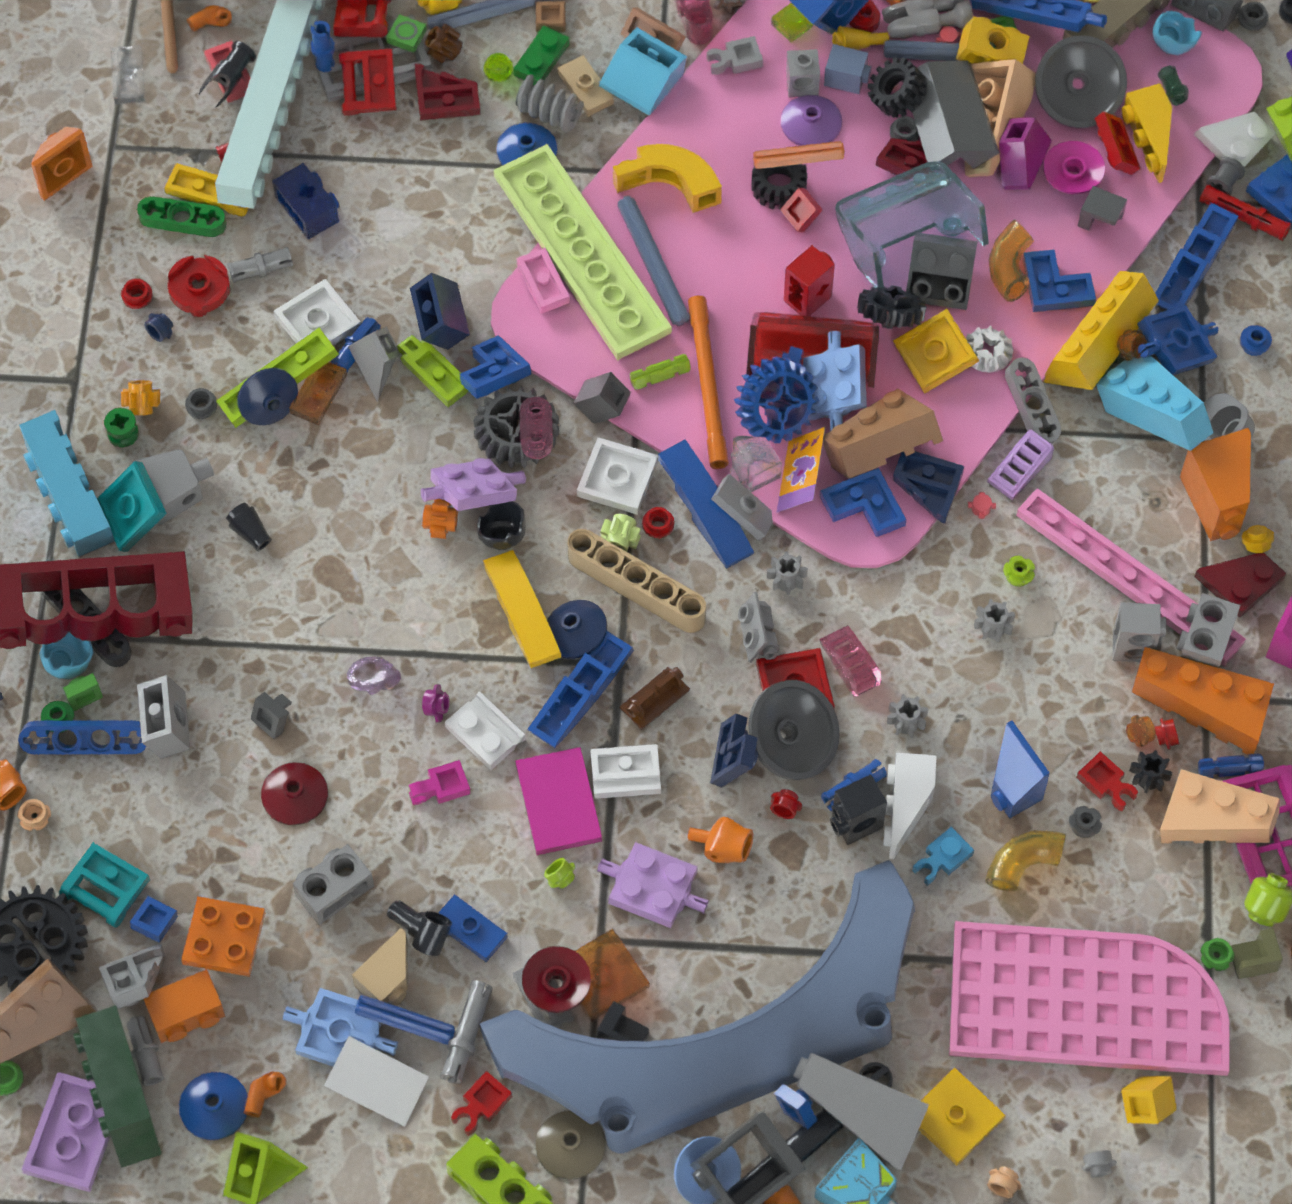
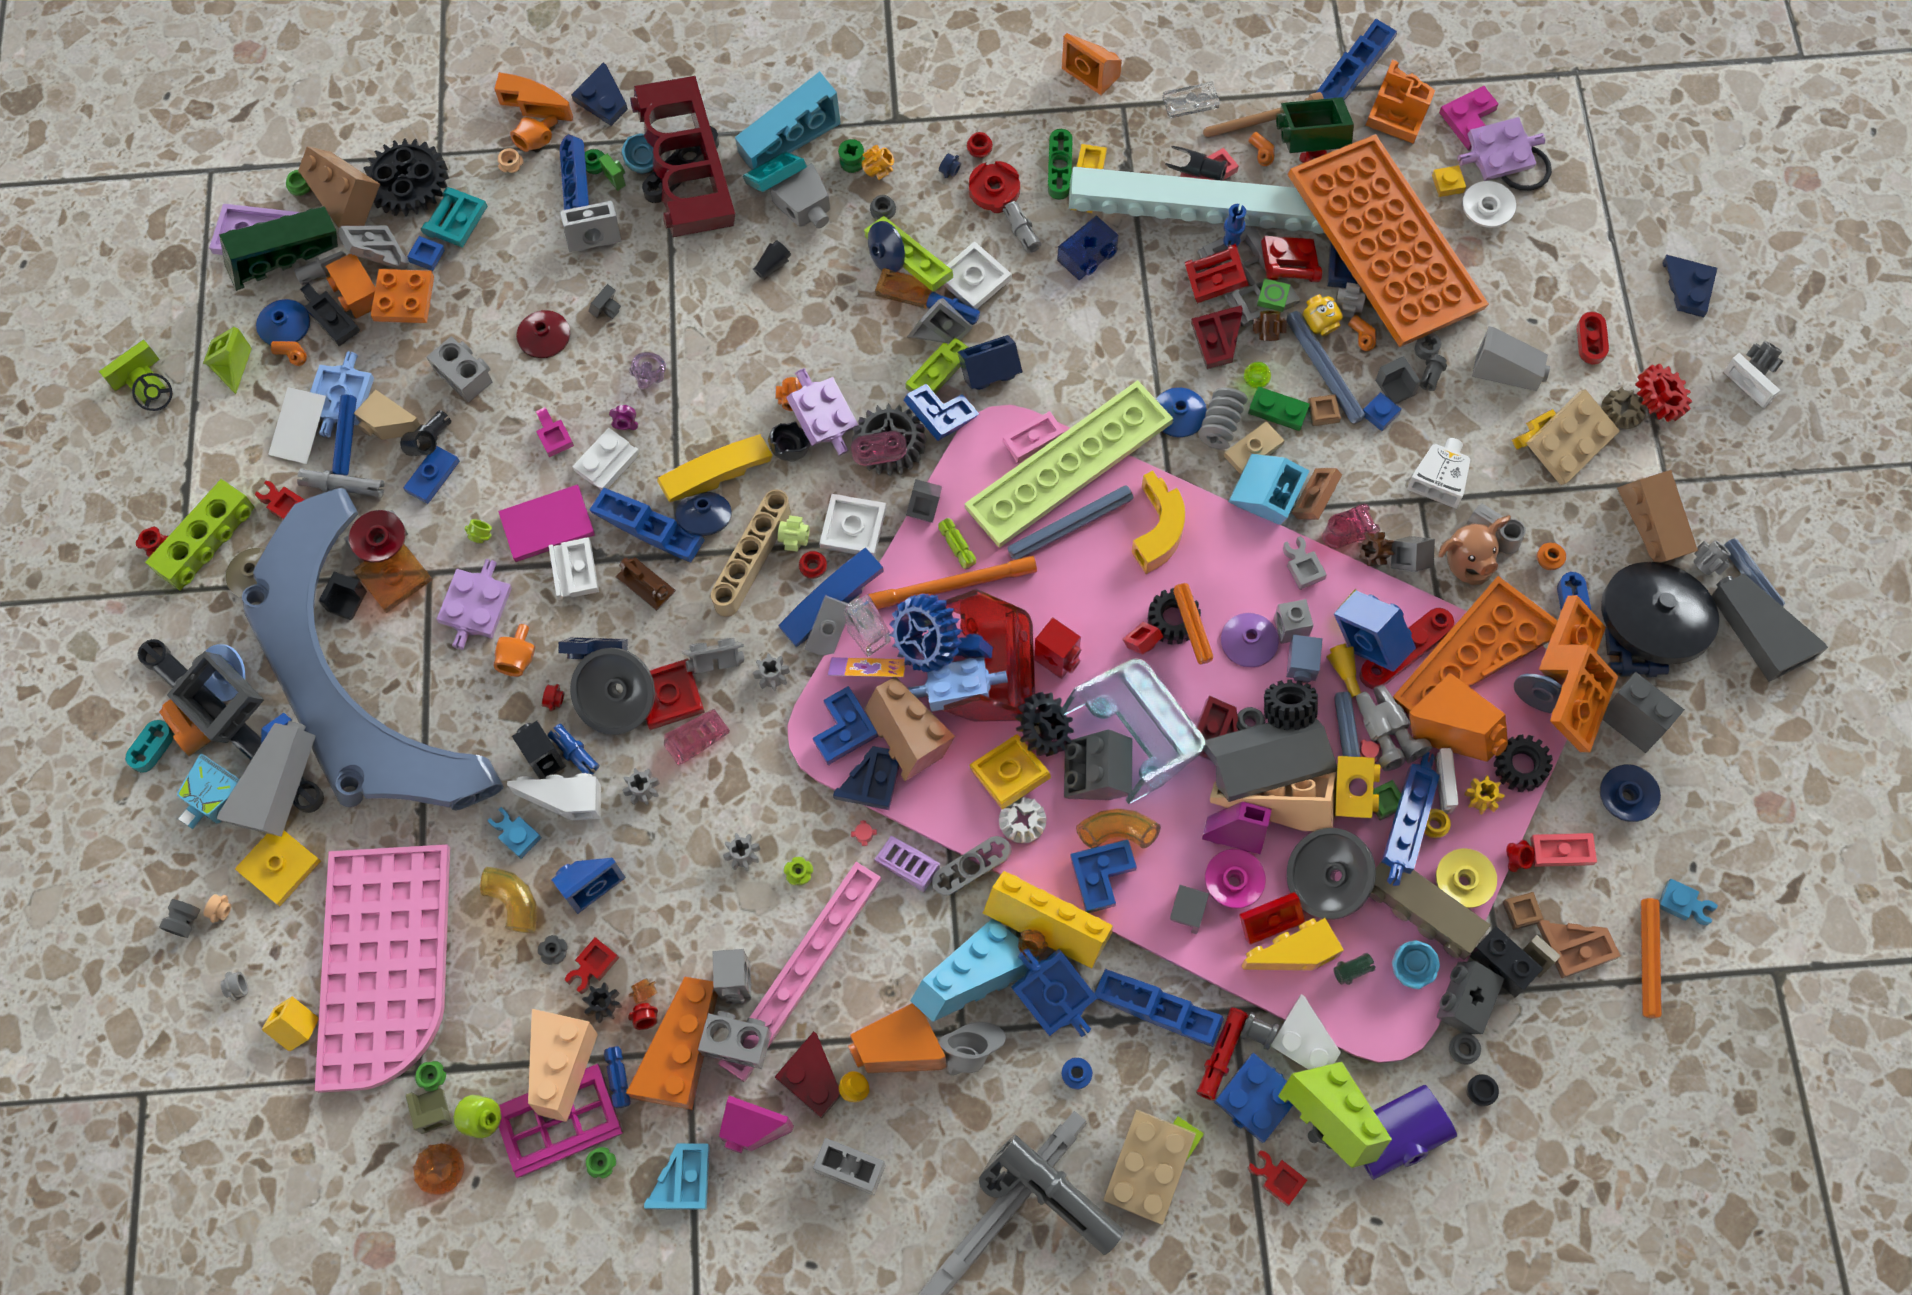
camera: 85 degrees right, 5 degrees up
(220, 1040) = (329, 315): none -> black plate

